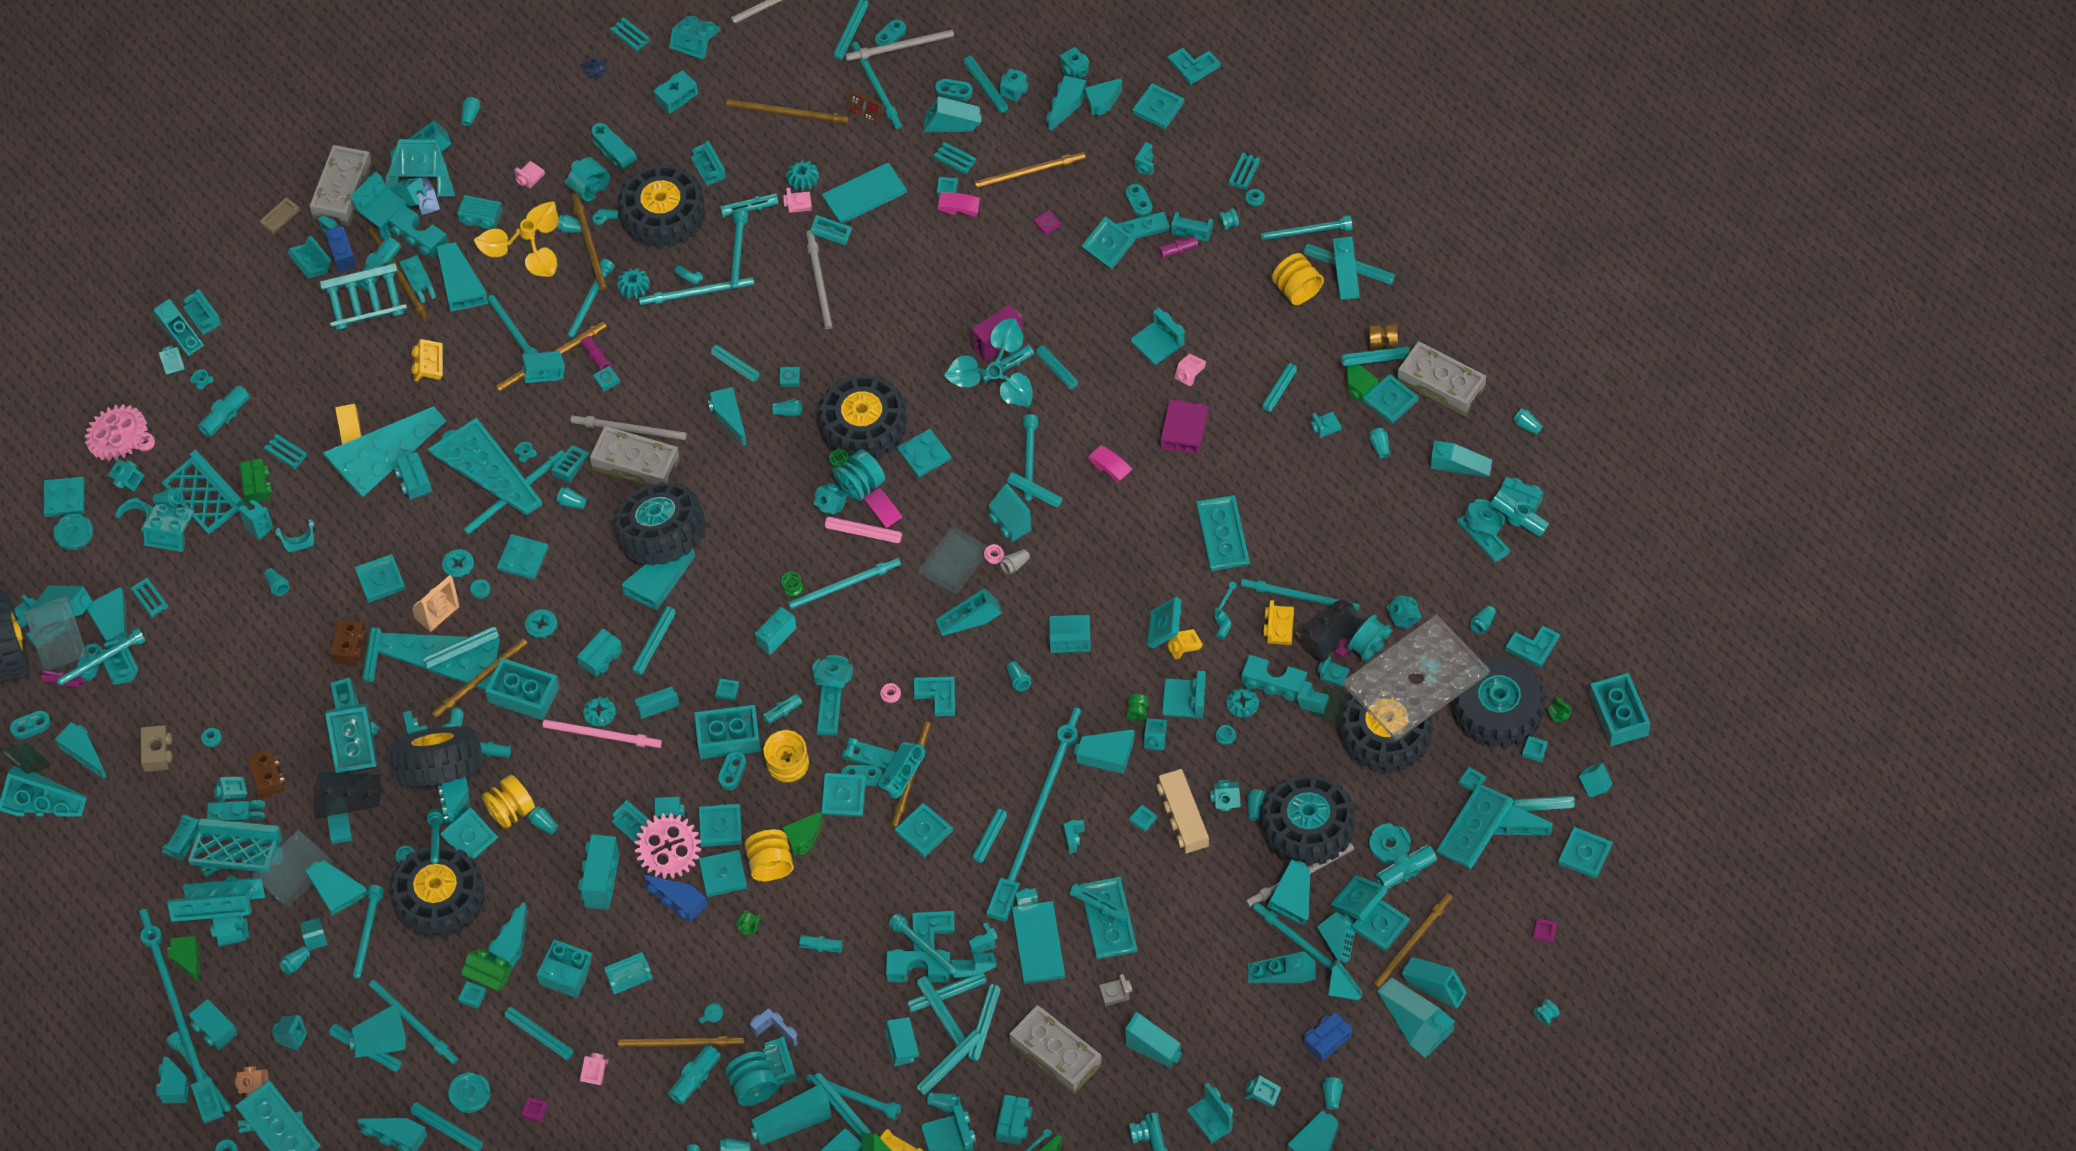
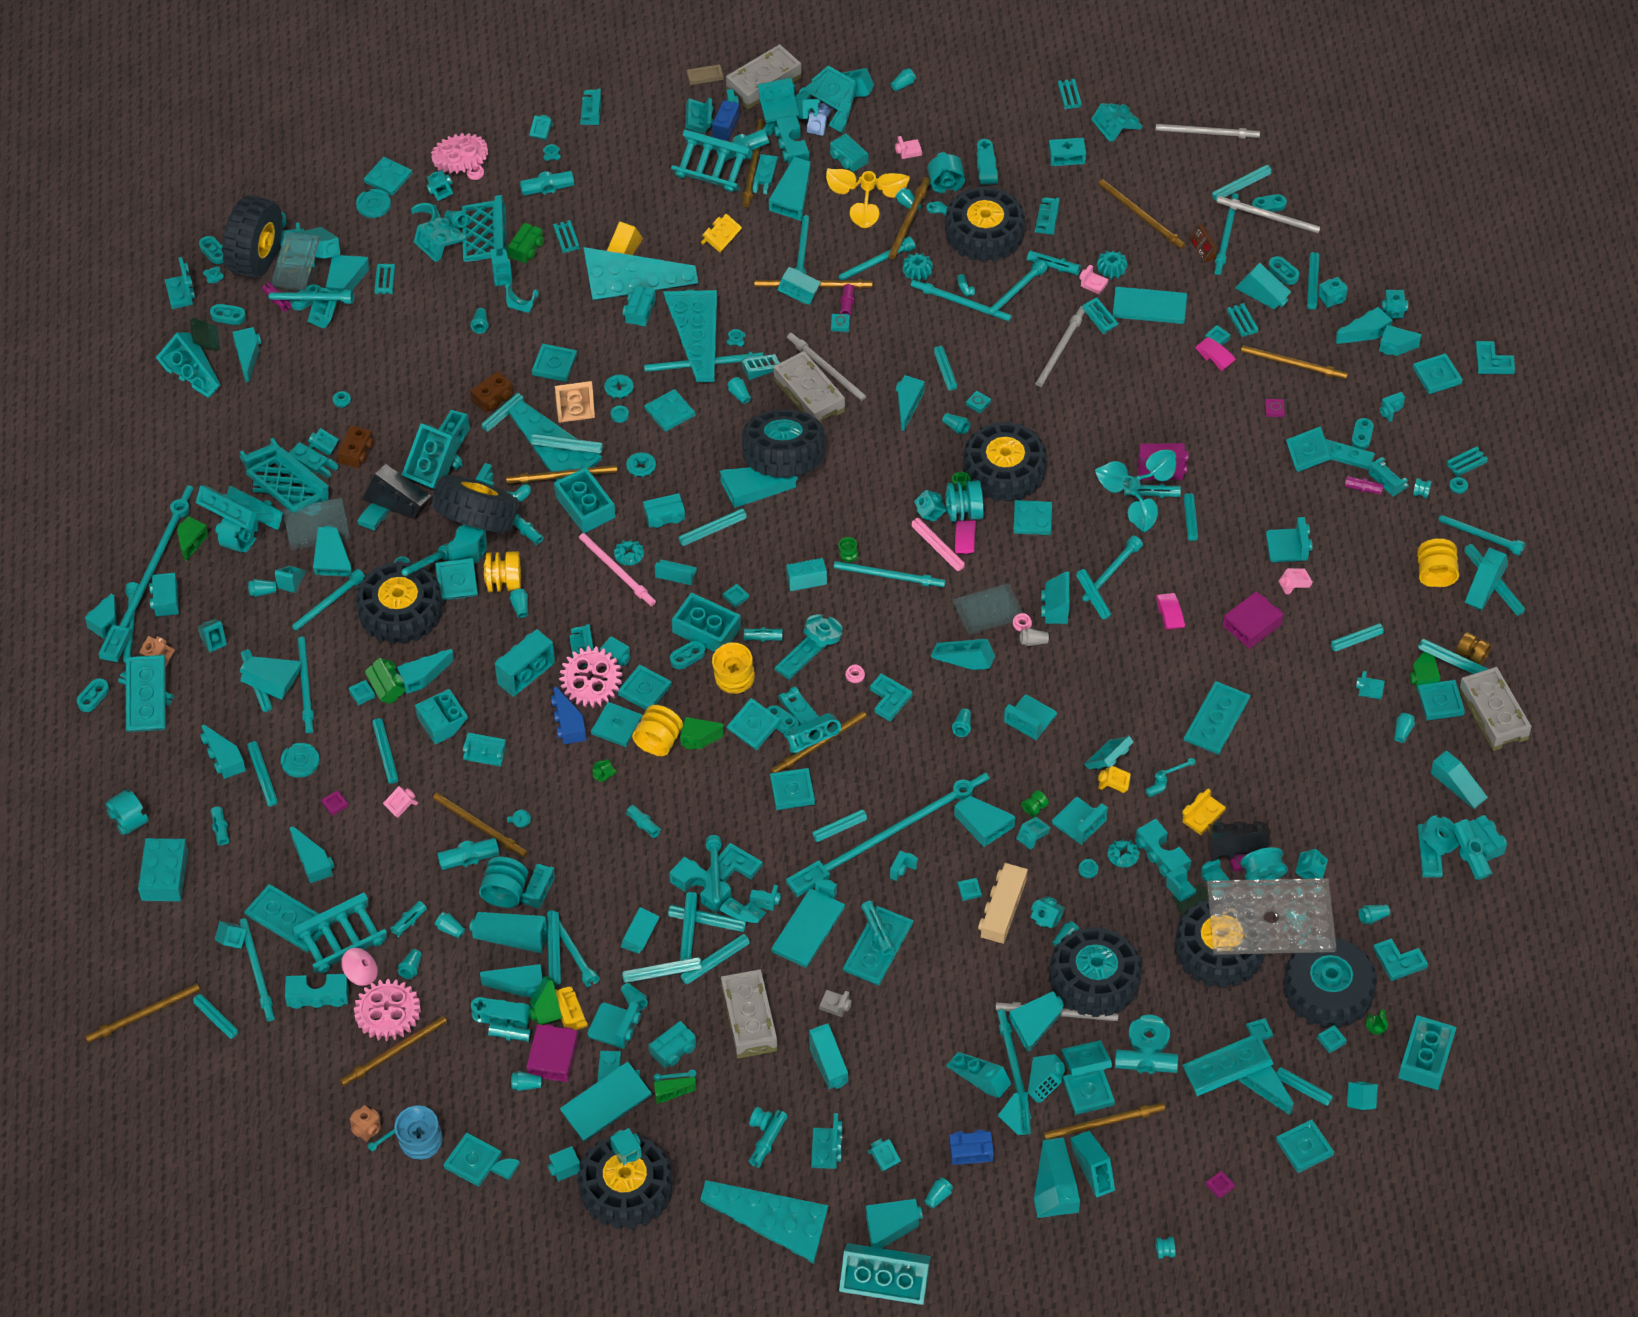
camera: 35 degrees right, 5 degrees down
(153, 738) = (295, 382): dark tan brick -> none
(176, 327) = (564, 107): teal slope -> none
(594, 68) = (1022, 101): dark blue plant -> none
(766, 1019) = (554, 849): medium blue bracket -> none
(1262, 587) = (1214, 776): teal bar -> none
(1527, 421) = (1541, 785): teal cone -> none

